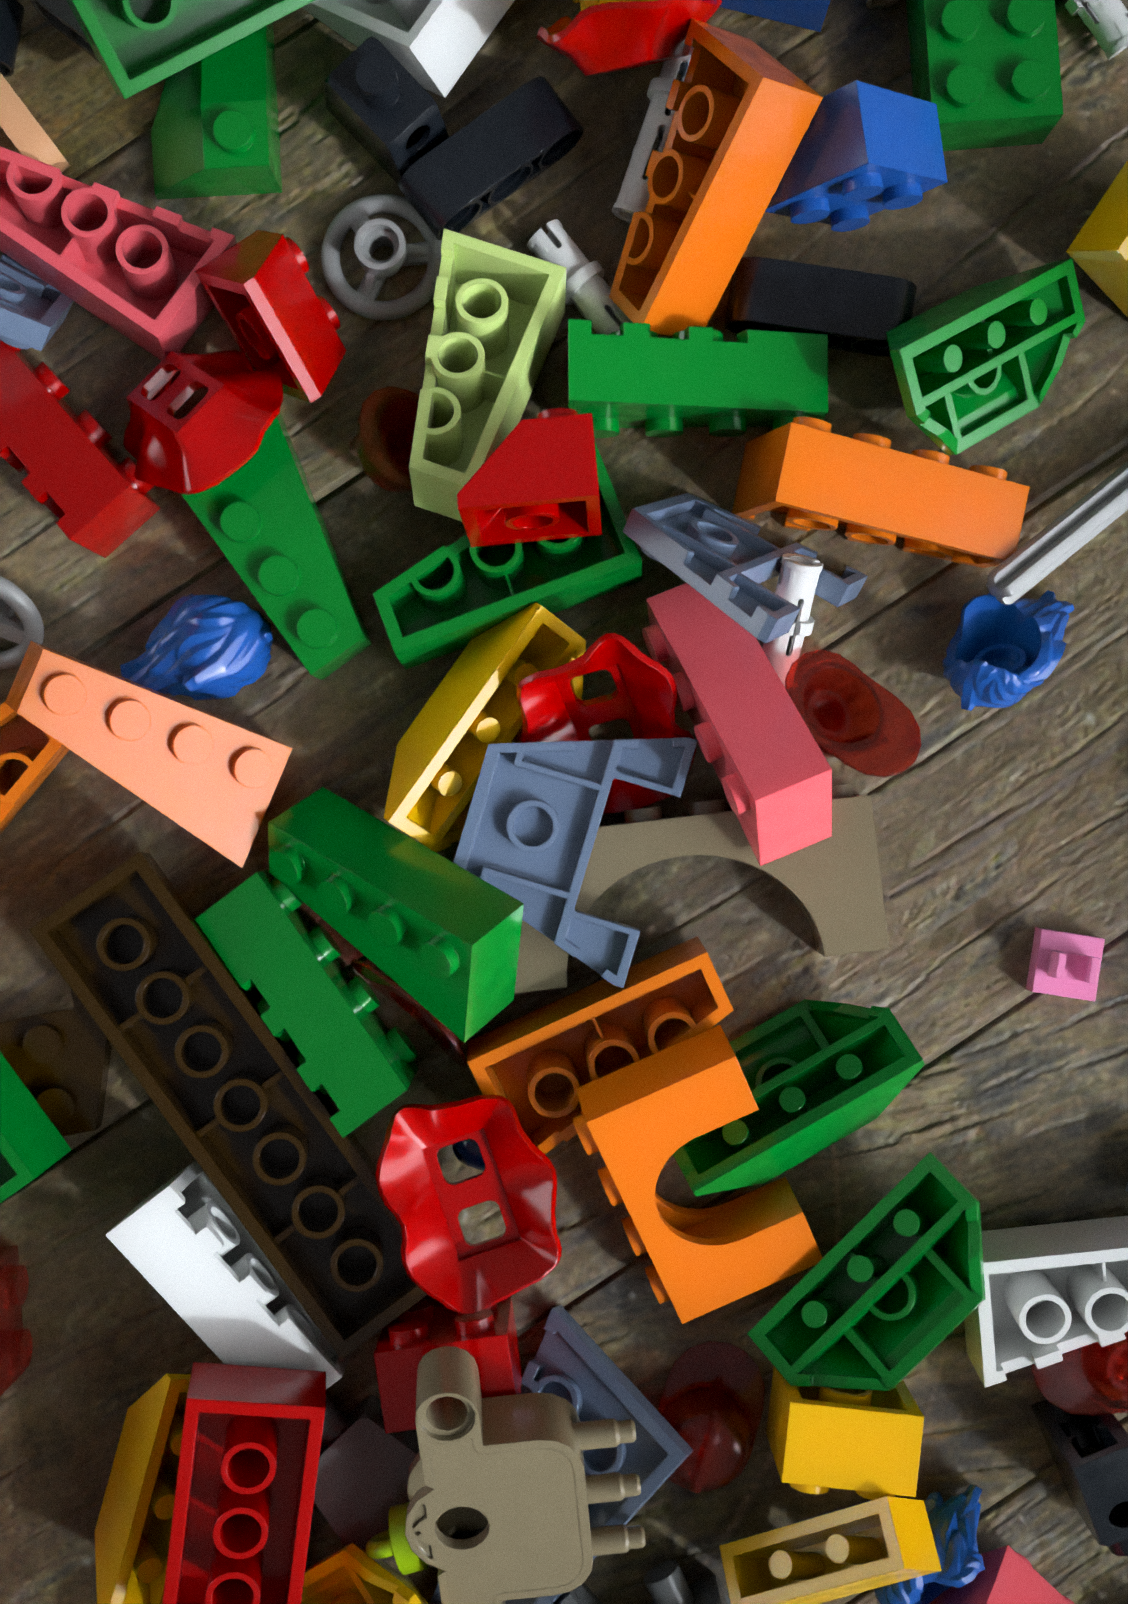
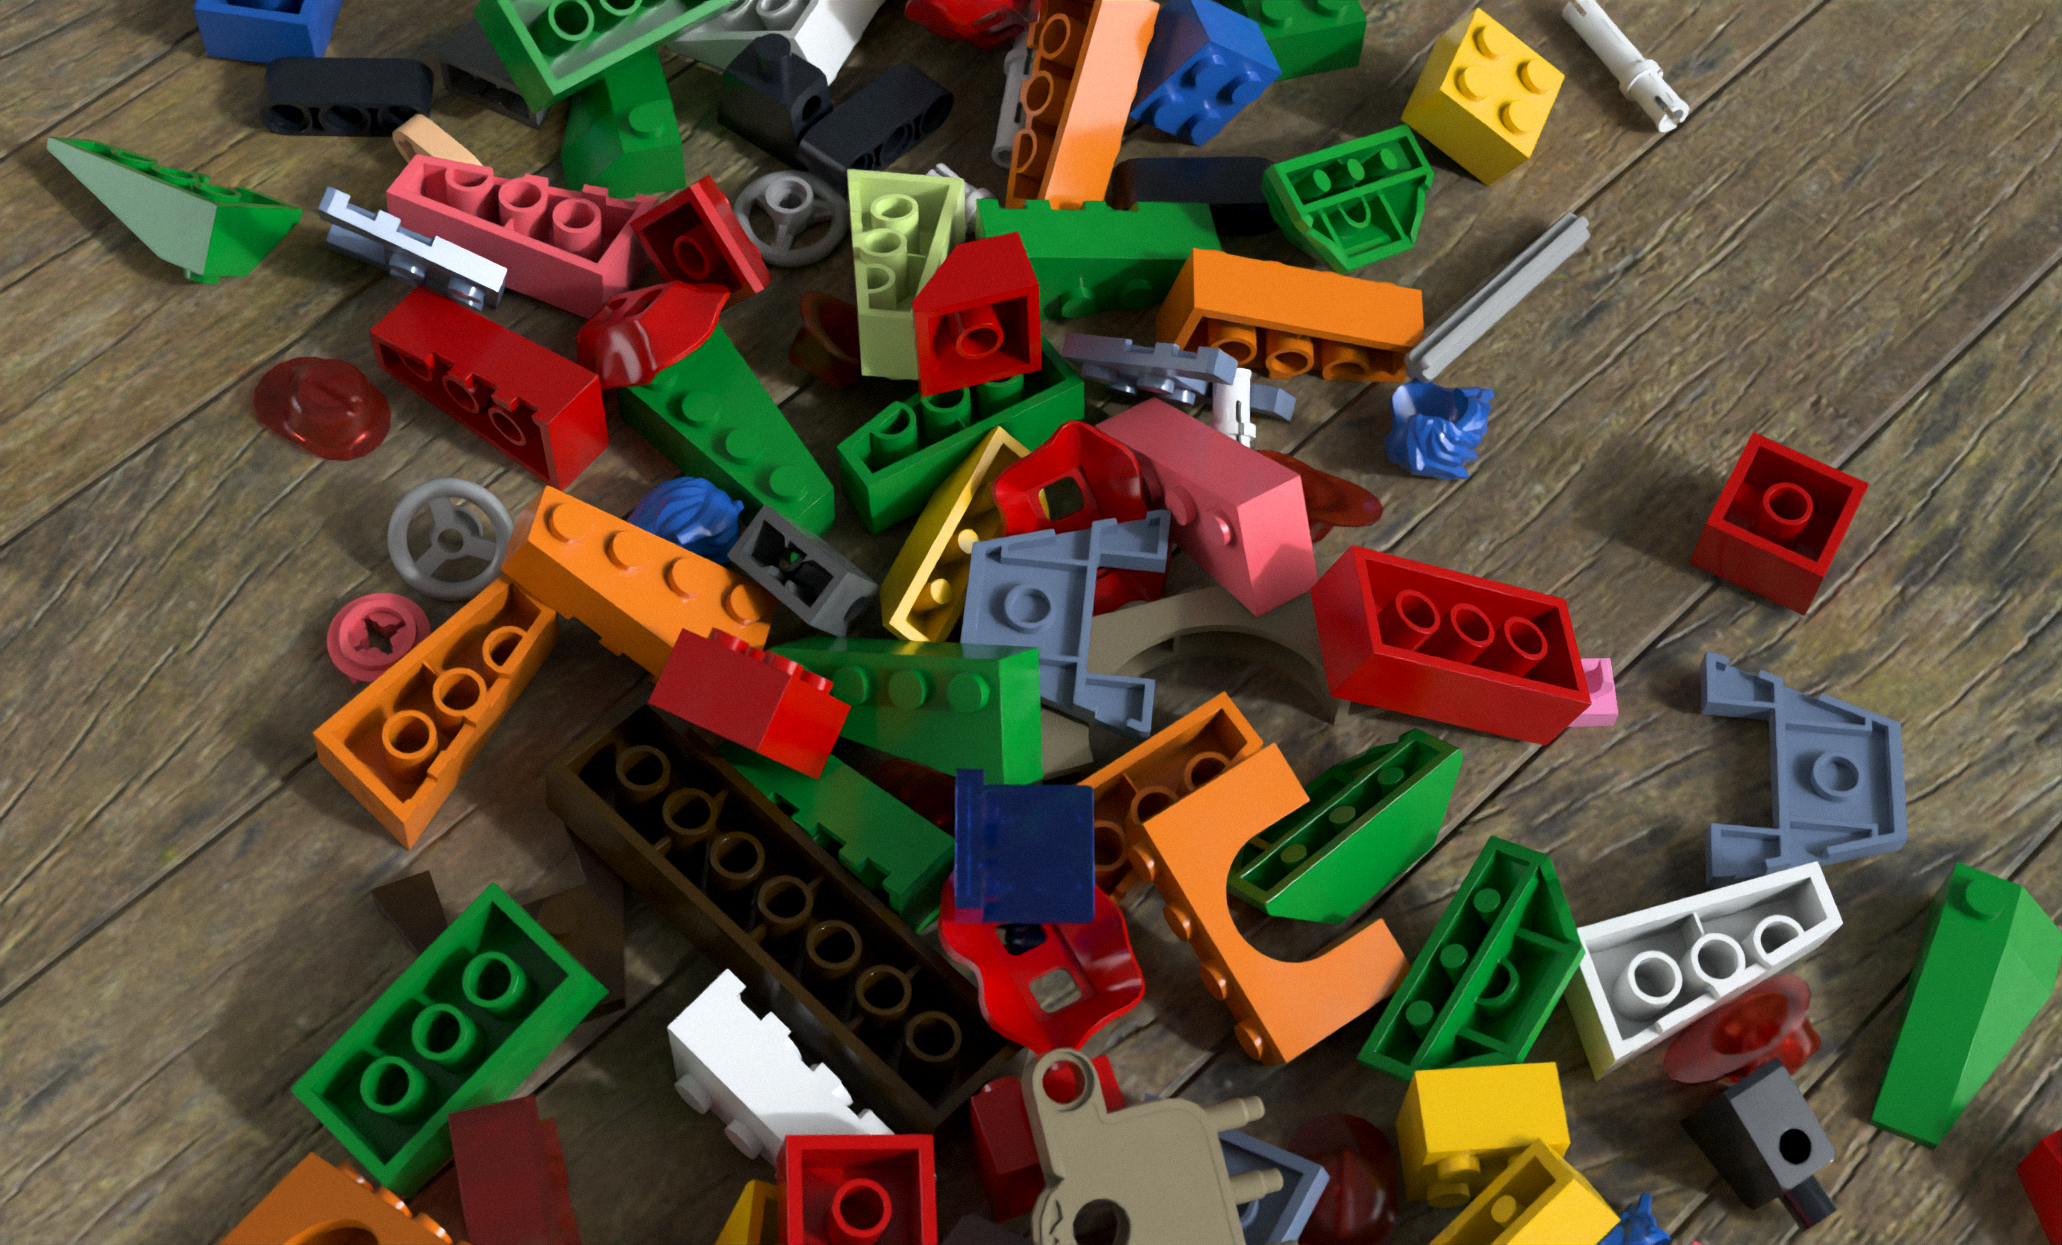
camera: 15 degrees left, 30 degrees down
(224, 920) = (752, 699): none -> red brick
(316, 742) = (819, 586): none -> dark grey torso
(461, 1127) = (1023, 852): none -> clear blue bracket
(941, 940) = (1448, 646): none -> red brick

